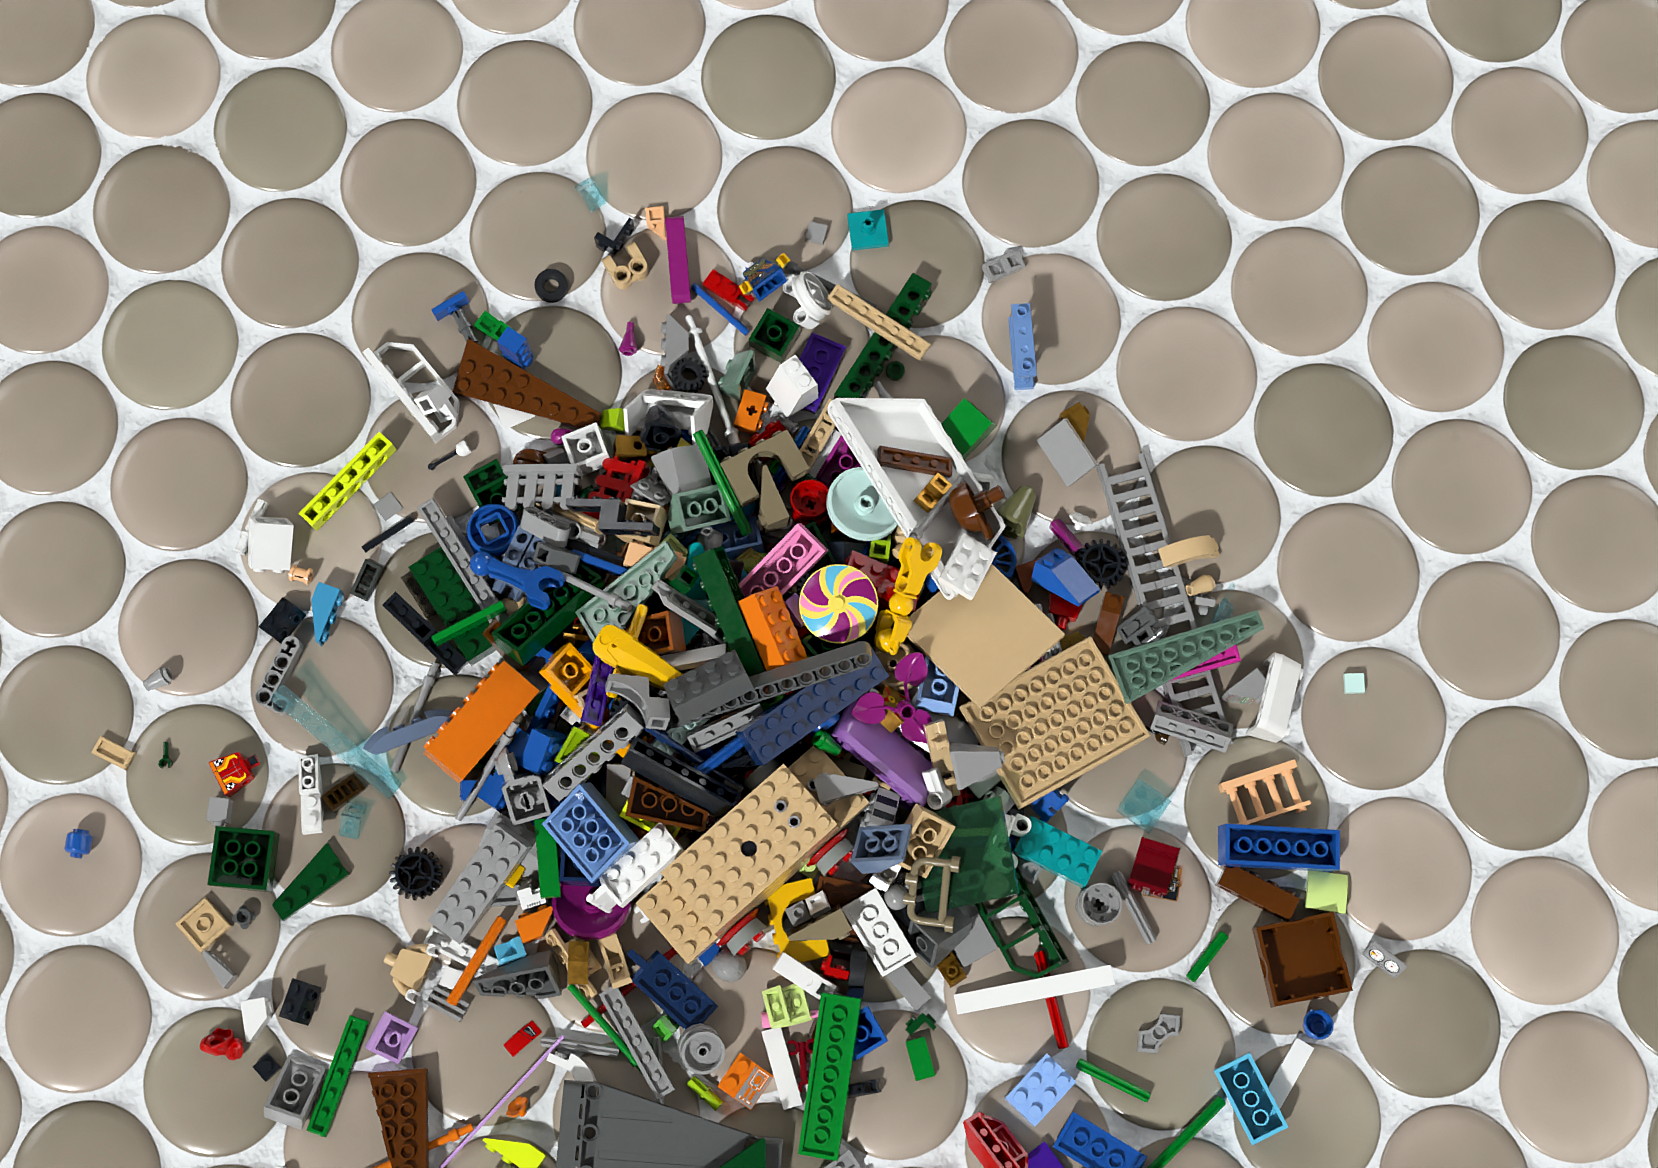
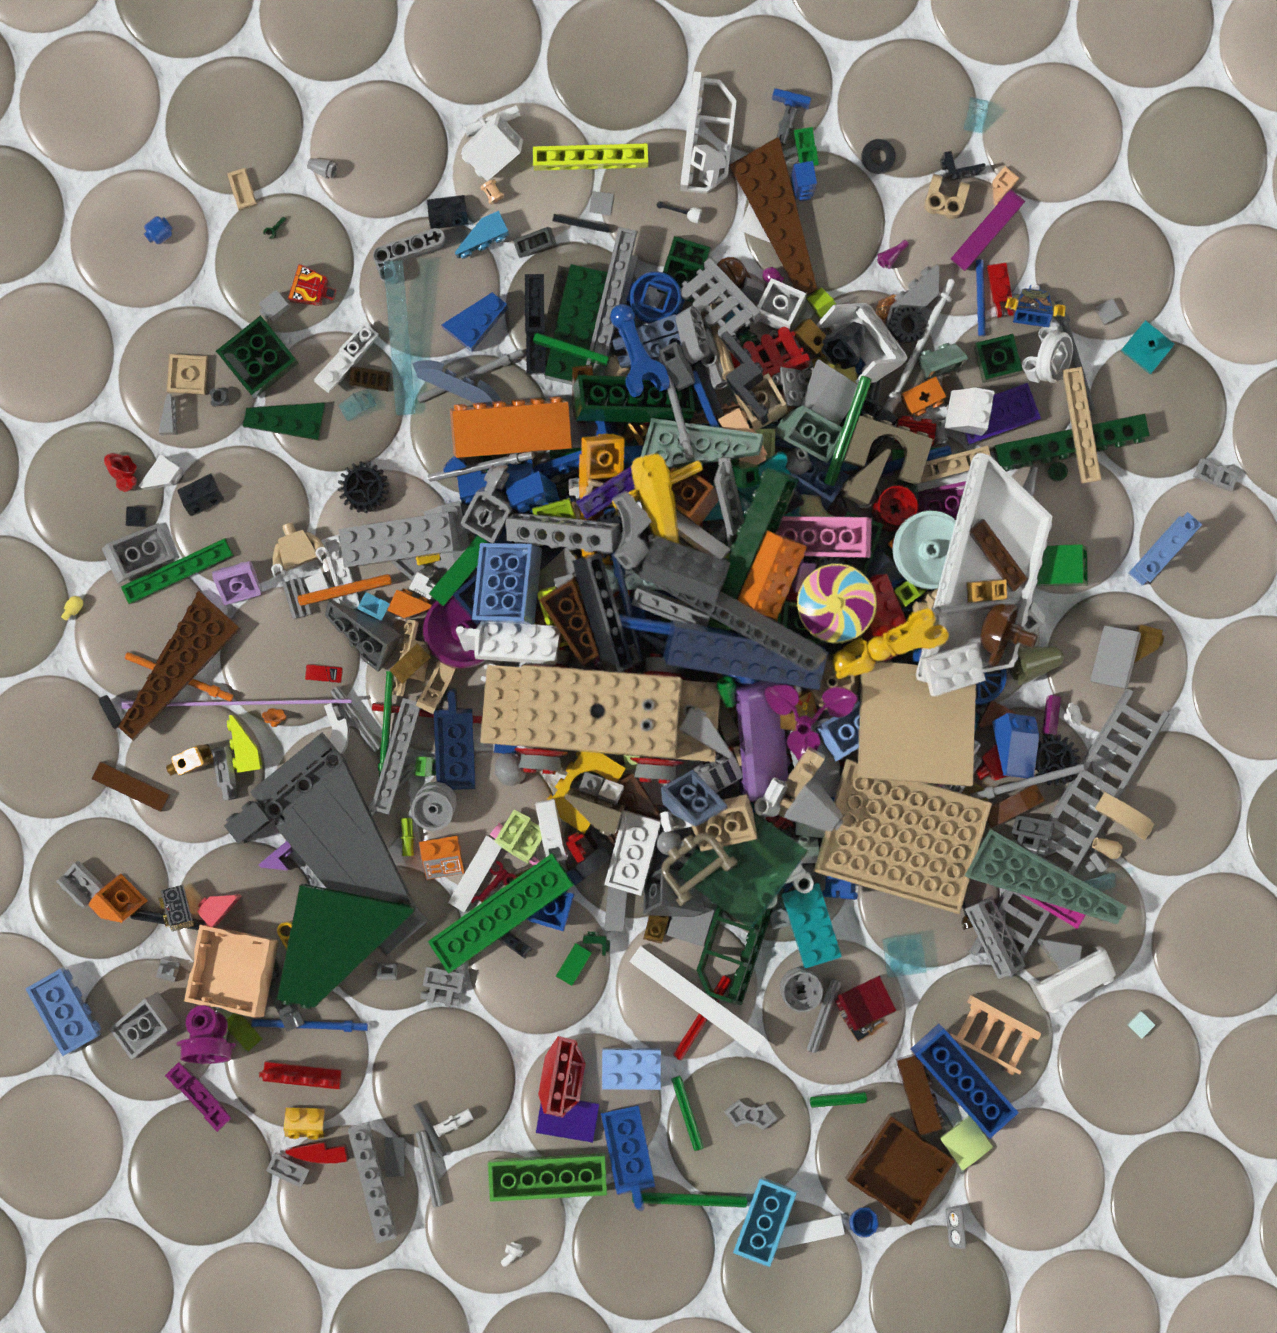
camera: 45 degrees right, 10 degrees up
(380, 675) = (476, 321): none -> blue wedge
(1081, 630) = (990, 792): none -> light grey bar

